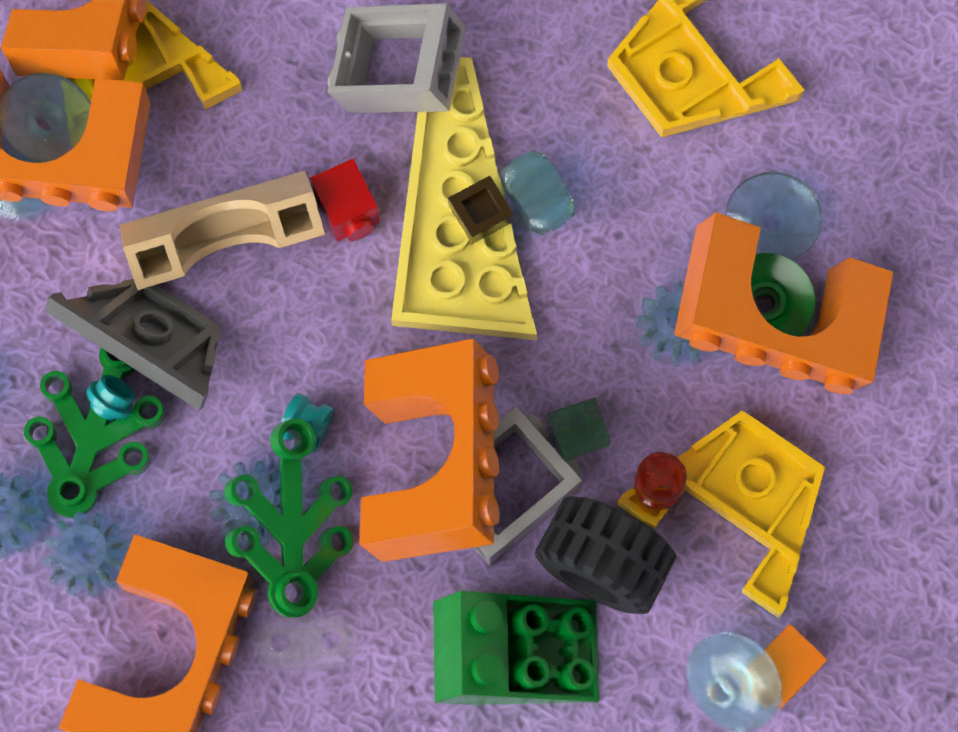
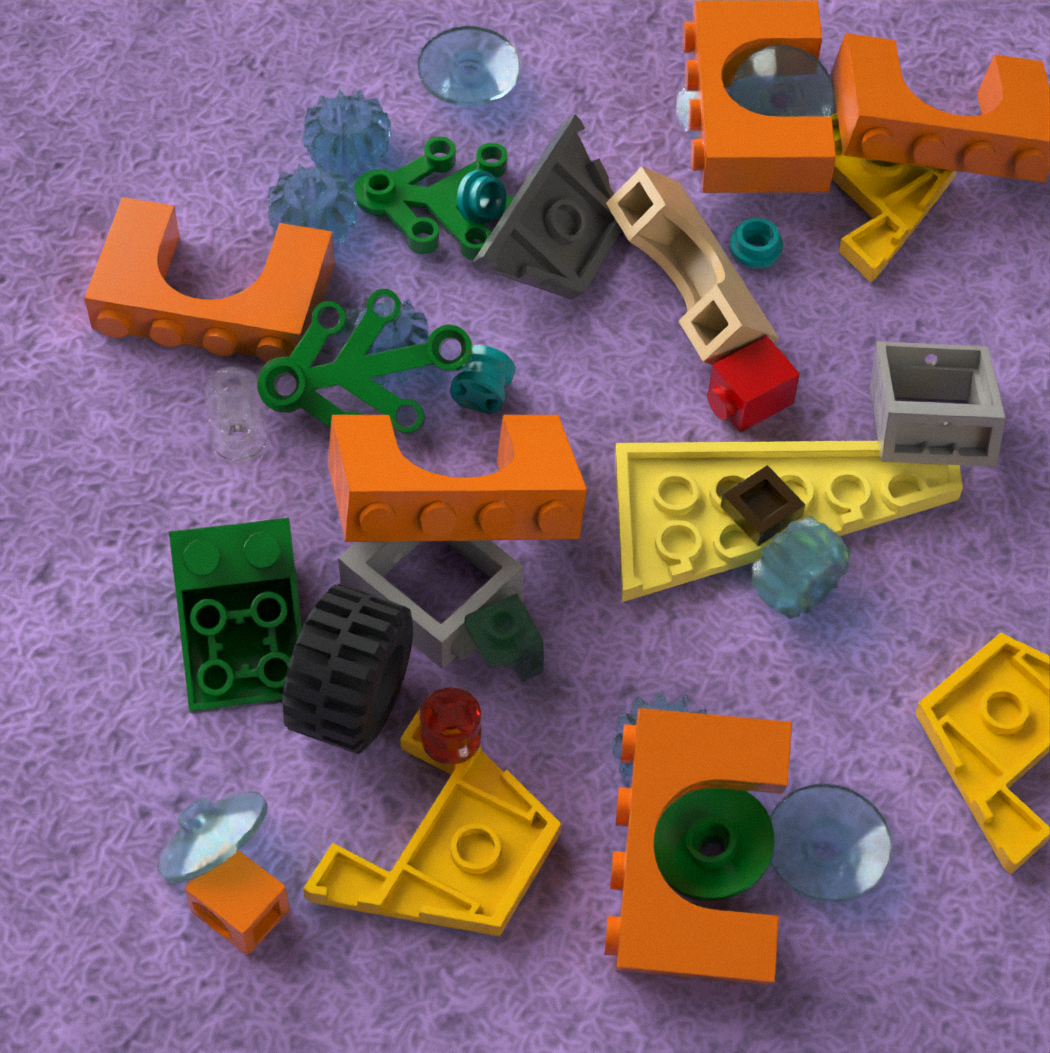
camera: 80 degrees right, 15 degrees down
(188, 161) = (756, 231): none -> teal plate

